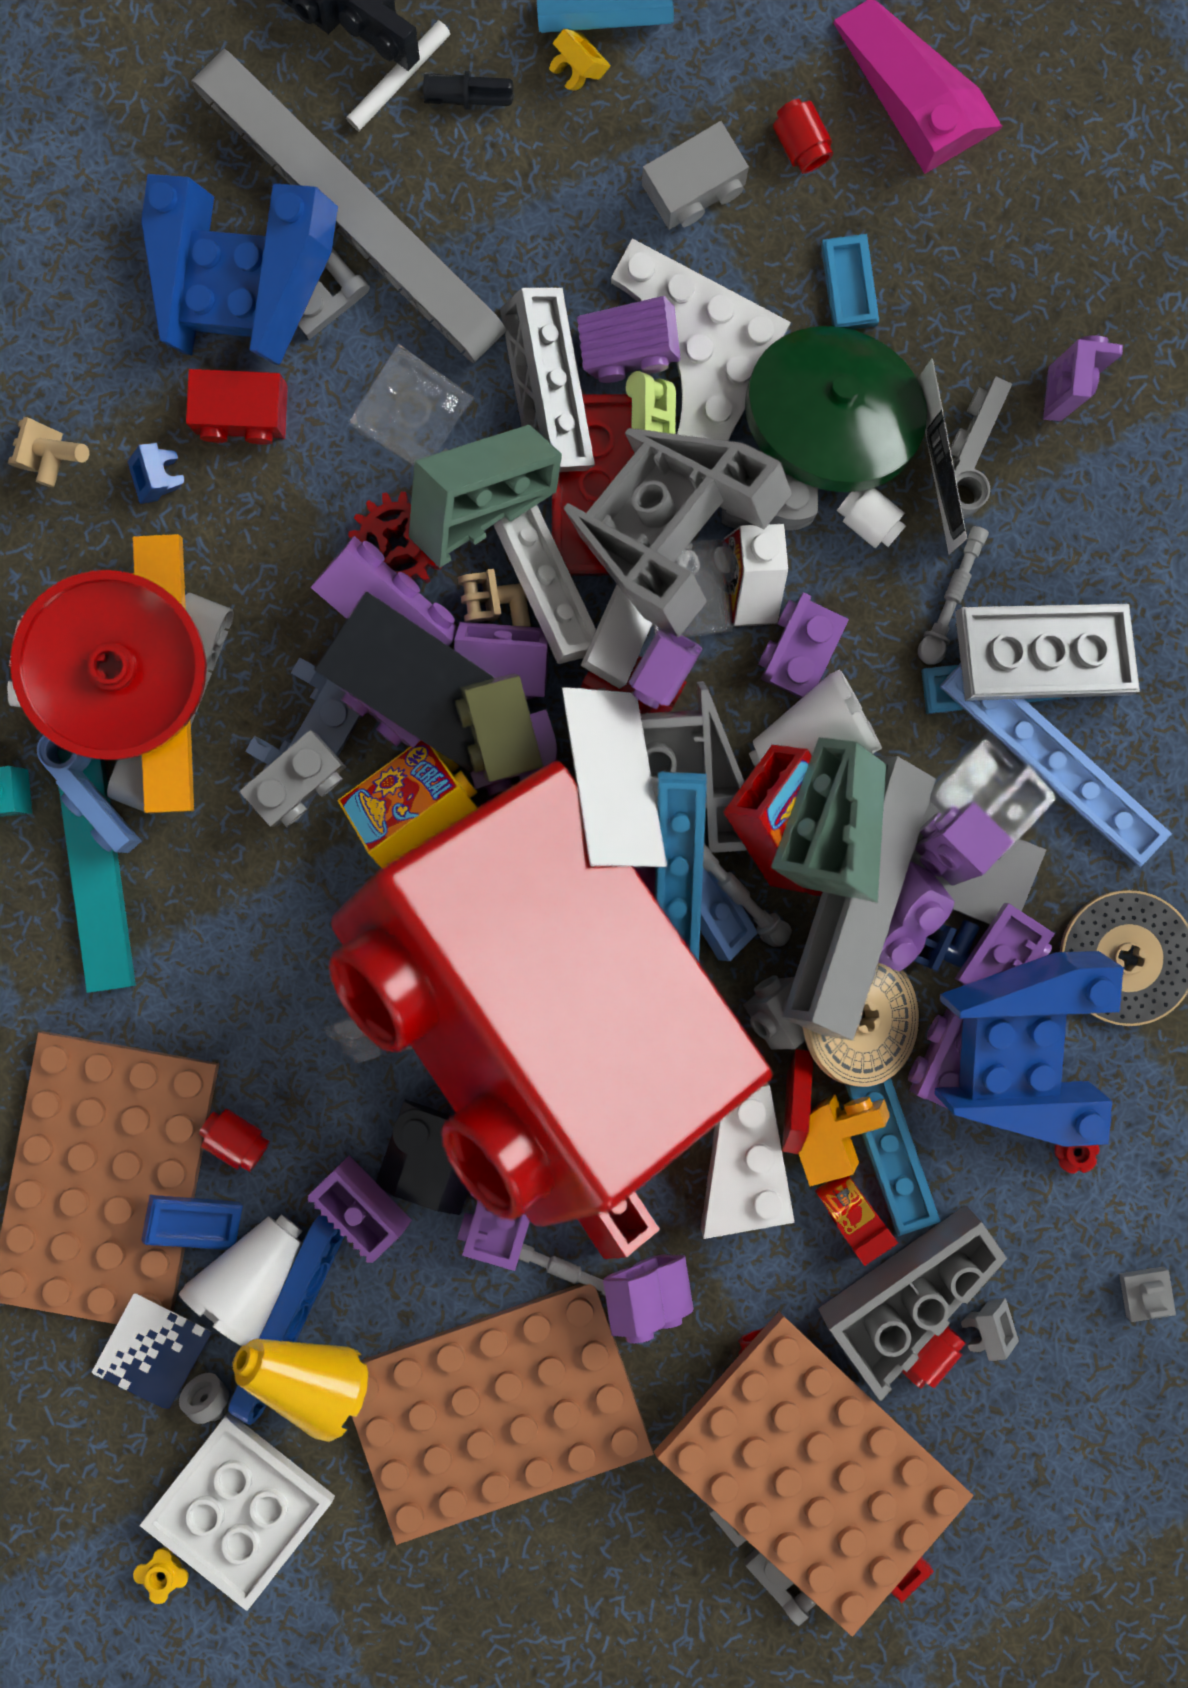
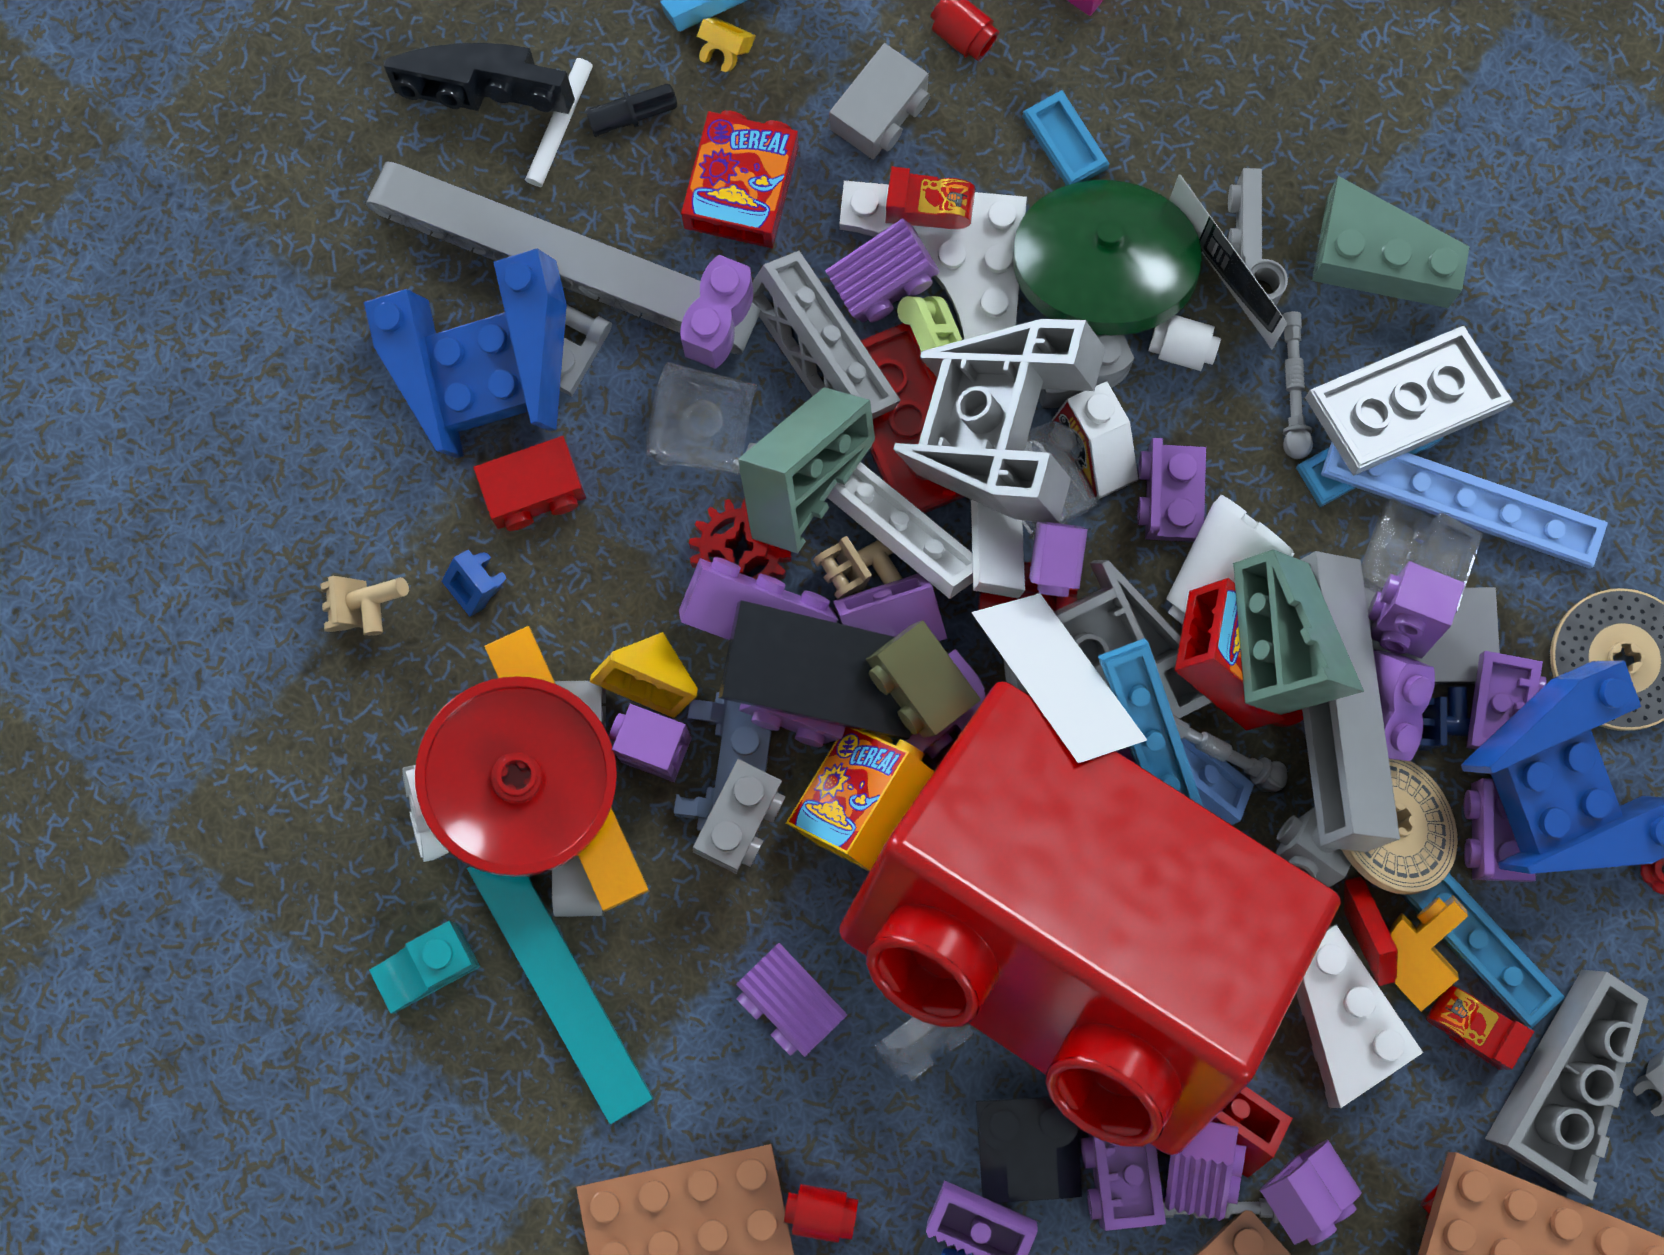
camera: 20 degrees left, 10 degrees down
(85, 799) = (533, 925): medium blue plate -> none
(245, 682) = (650, 742): none -> medium lavender brick
(270, 619) = (648, 675): none -> yellow slope
(279, 953) = (790, 1001): none -> medium lavender brick
(467, 309) = (723, 303): none -> medium lavender brick
(539, 197) = (740, 178): none -> brick
(567, 1247) = (1206, 1173): none -> medium lavender brick
(696, 288) = (929, 200): none -> red leg
(936, 1359) = (1627, 1136): red brick -> none
(1076, 375) = (1318, 137): medium lavender bracket -> none
(1091, 506) = (1385, 250): none -> sand green wedge

